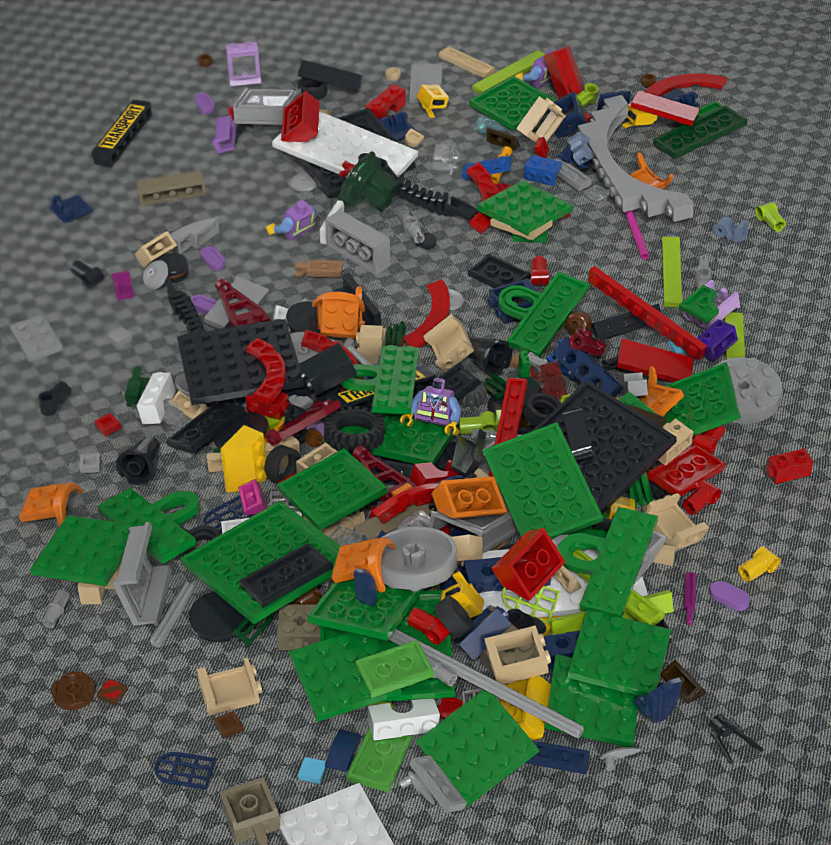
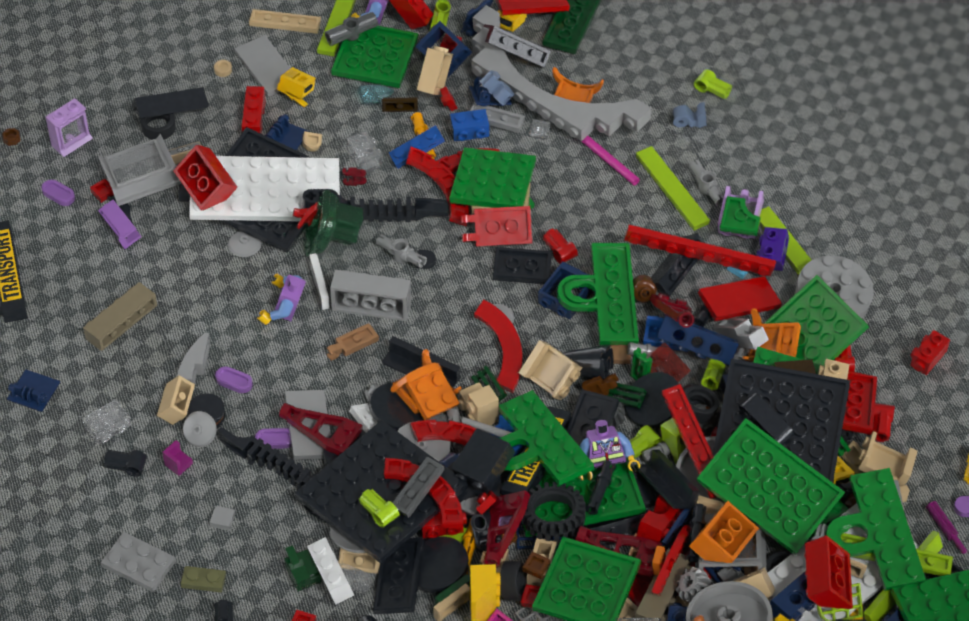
camera: 35 degrees left, 10 degrees up
(68, 367) = (203, 579): none -> olive plate
(96, 243) = (106, 422): none -> clear brick
(218, 364) = (381, 511): none -> lime piece
(257, 361) = (418, 486): none -> dark grey plate
(305, 458) = (536, 565): none -> reddish brown tile
(306, 398) = (485, 501): none -> red plate
(416, 428) = (602, 480): none -> black pin
(424, 166) = (357, 176): none -> dark red piece
(479, 370) = (601, 386): none -> reddish brown plate
(501, 239) = (500, 226): none -> red tile
(505, 77) = (351, 28): none -> dark grey piece
(622, 128) = (517, 46): none -> panel

